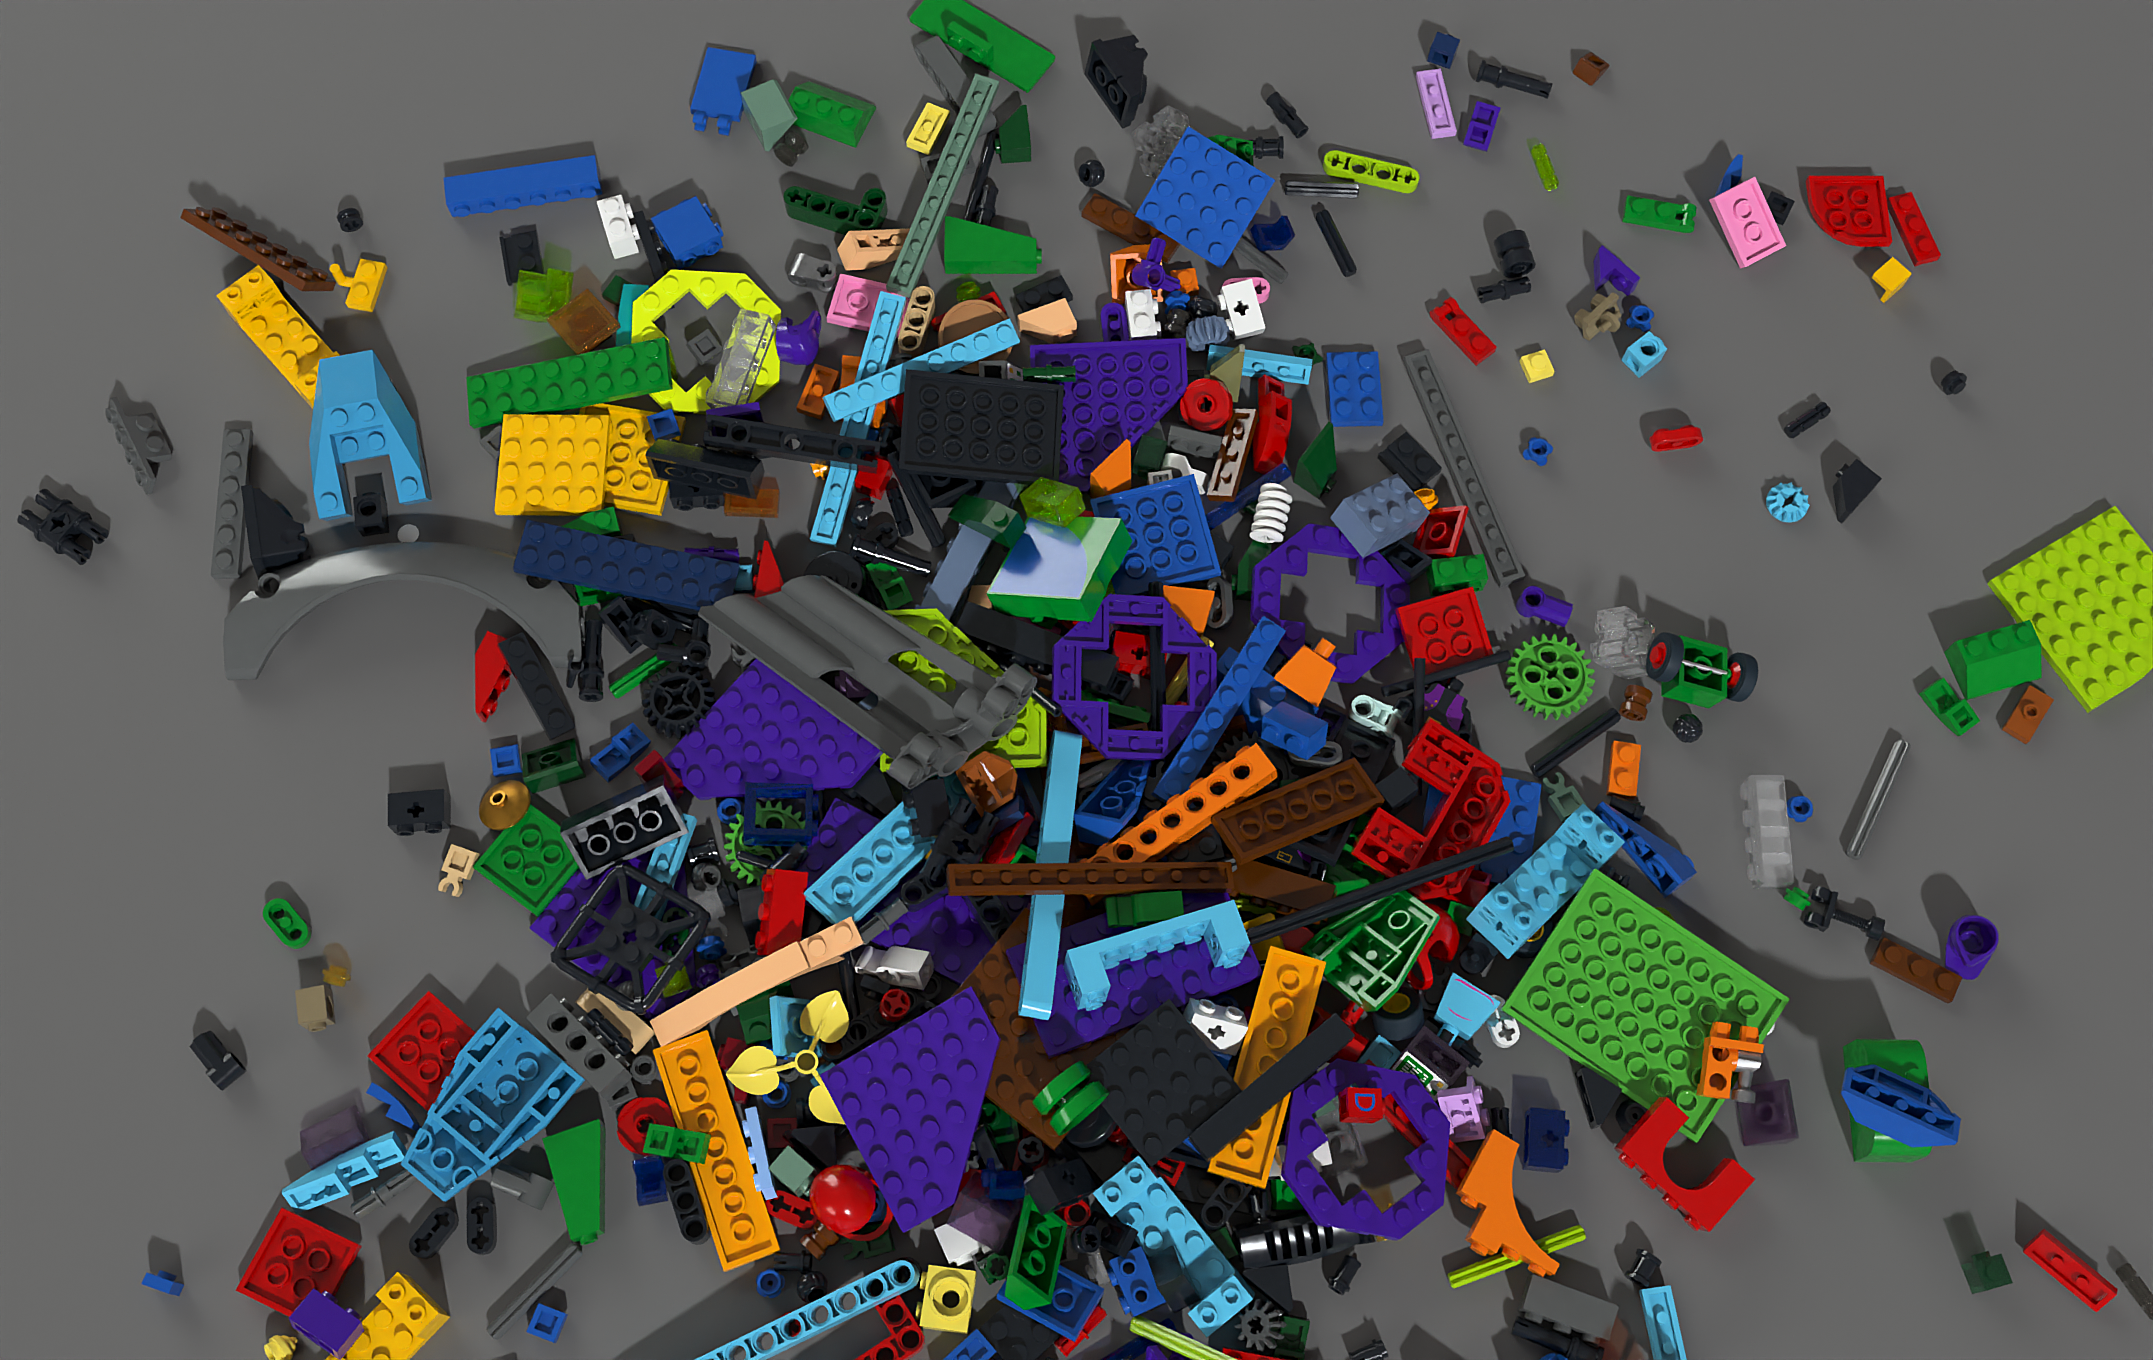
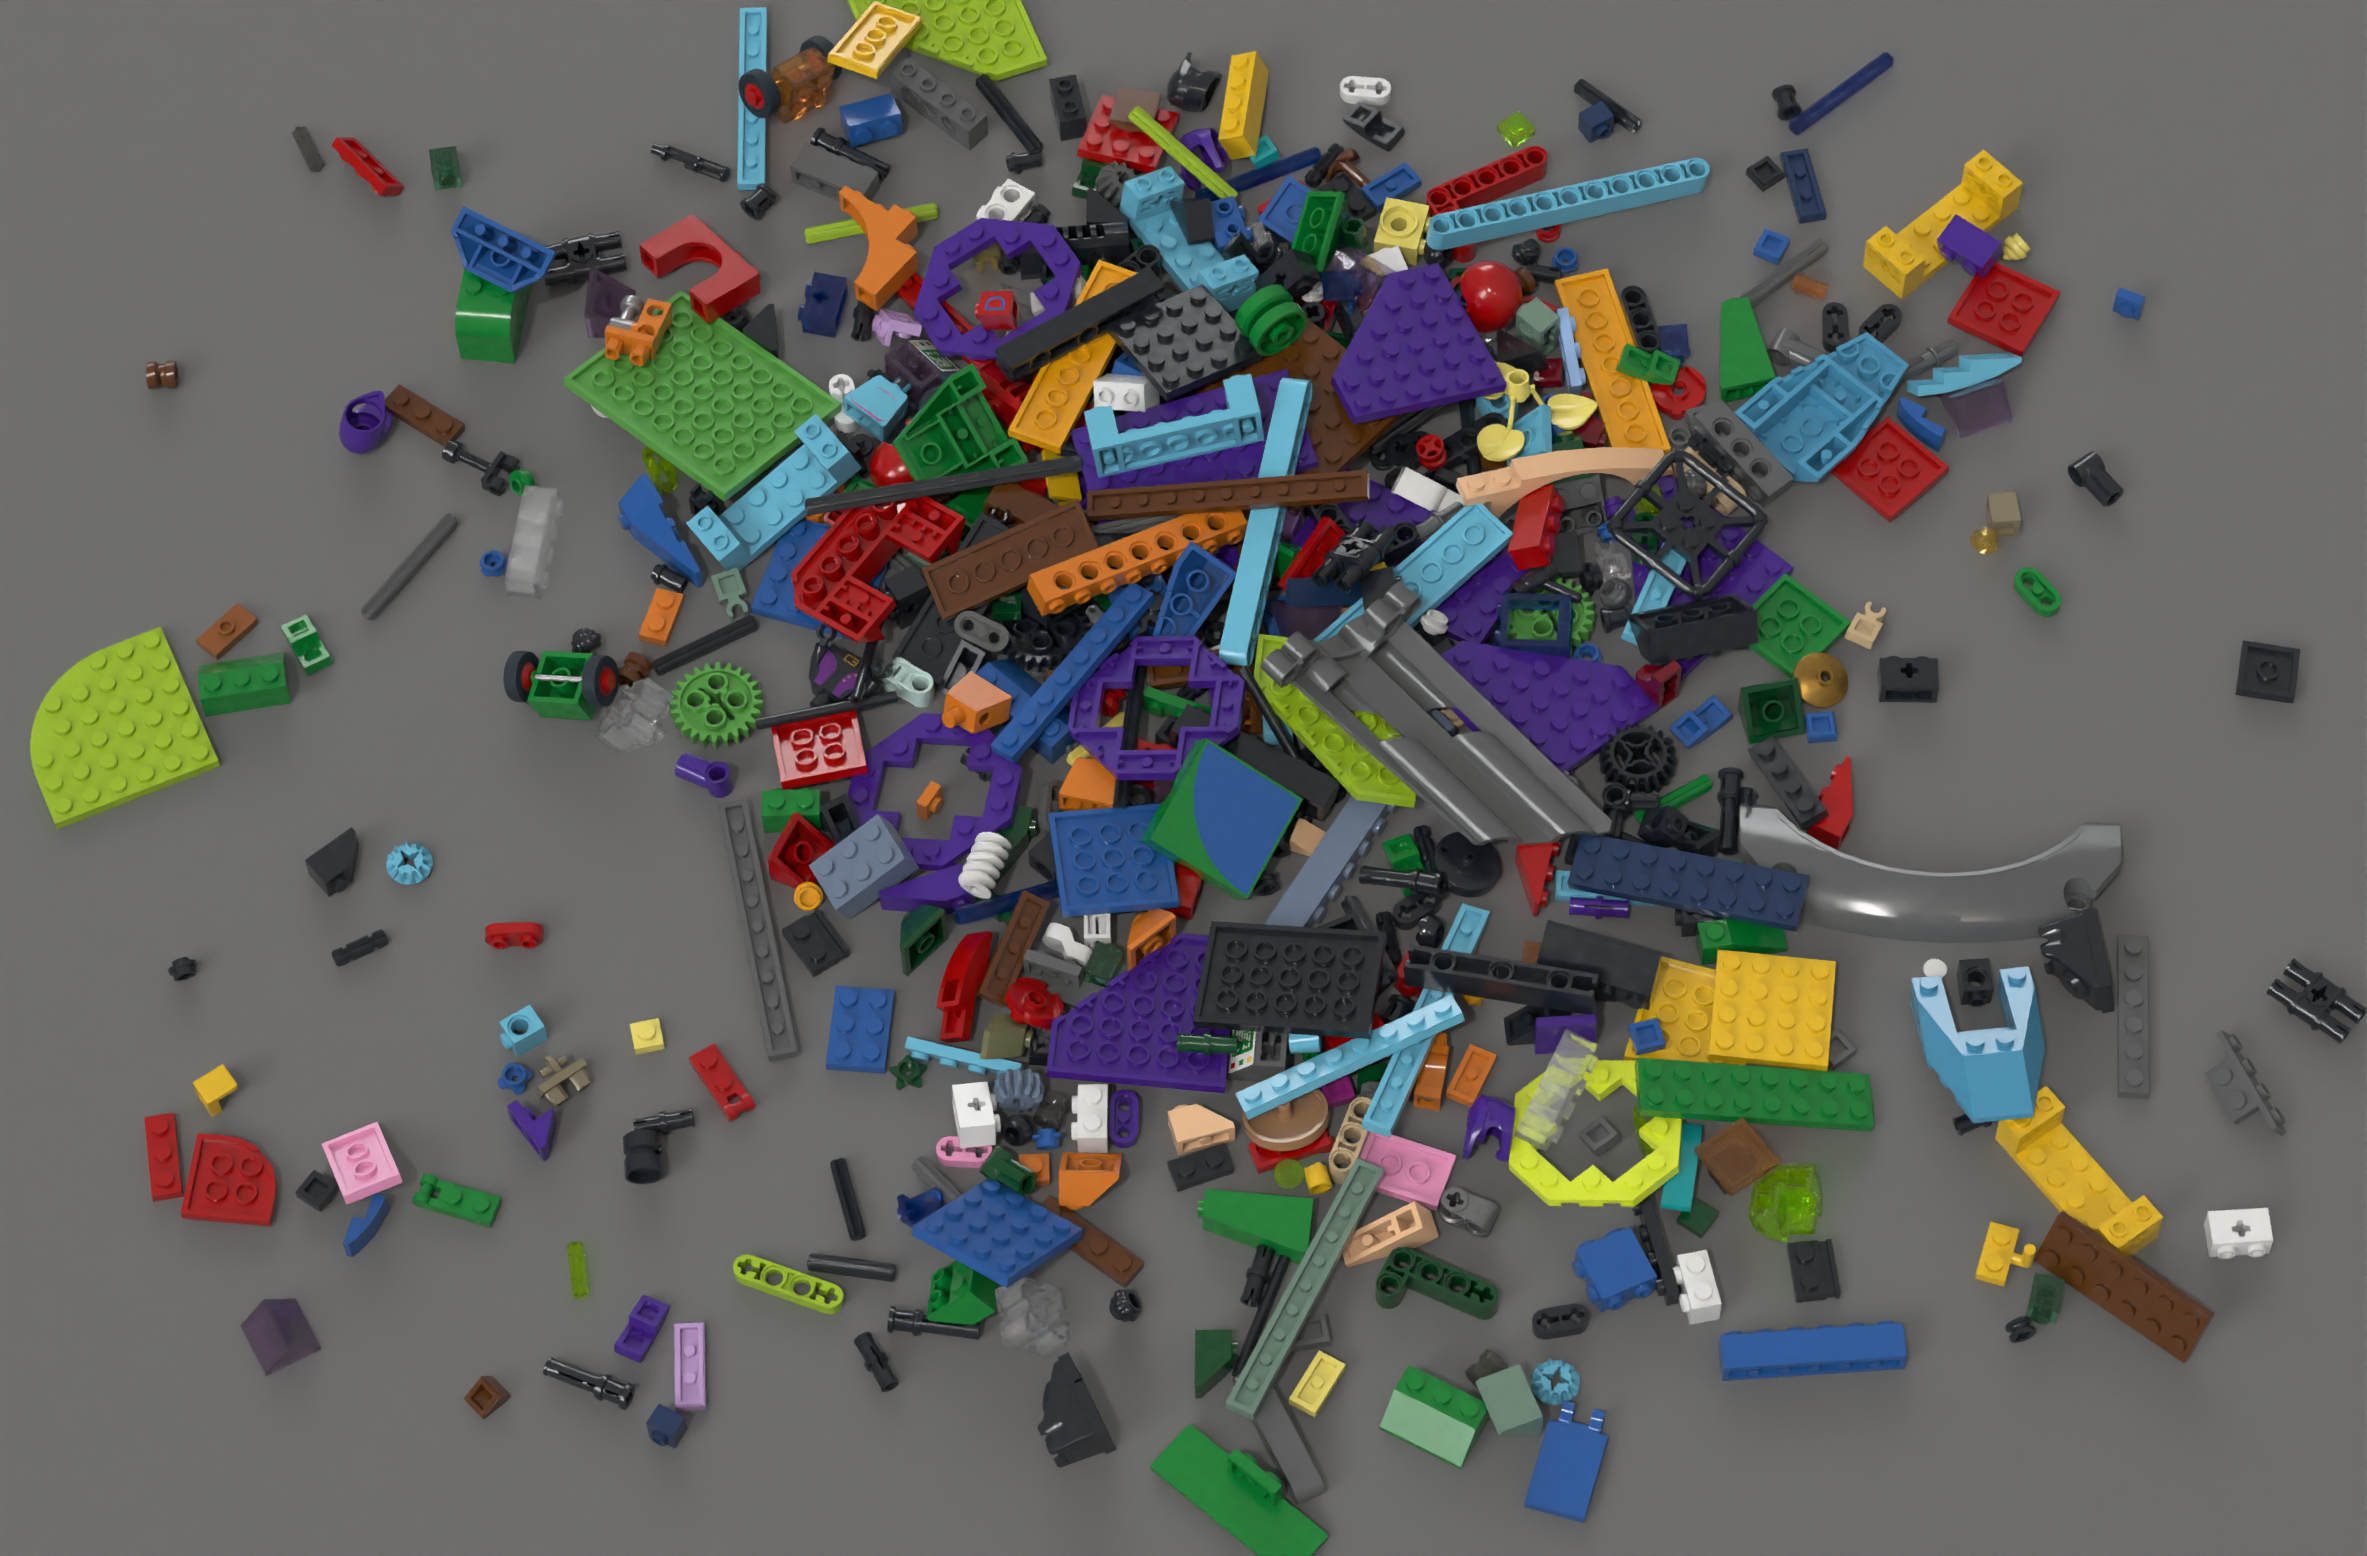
camera: 170 degrees left, 10 degrees down
(67, 856) = (2267, 672): none -> black plate
(157, 313) = (2238, 1232): none -> white brick
(327, 244) = (2045, 1298): none -> clear green brick
(507, 1274) = (1809, 286): none -> clear orange pin
(733, 197) = (1560, 1321): none -> black beam
(740, 158) = (1563, 1391): none -> medium azure gear
(877, 808) = (1434, 622): none -> white plate
(943, 291) = (1317, 1178): none -> yellow hose
(988, 781) = (1316, 619): dark orange slope -> none
(989, 519) = (1294, 886): dark green slope -> none
(1052, 502) = (1235, 894): clear neon green brick -> none
(1143, 909) = (1175, 471): green piece -> none
(1157, 277) = (1071, 1151): dark purple axle -> none
(1211, 271) = (1007, 1171): none -> dark green piece
(1294, 730) = (1000, 642): blue brick -> none
(1312, 509) = (933, 889): none -> dark purple slope
(1331, 598) = (930, 801): none -> orange plate
(1370, 1277) = (1002, 208): none -> white brick
(1541, 445) = (666, 933): blue plate -> none
(1726, 1317) = (691, 161): none -> black piece
(1767, 97) = (279, 1334): none -> clear purple slope
(1809, 1160) = (588, 247): none -> black pin

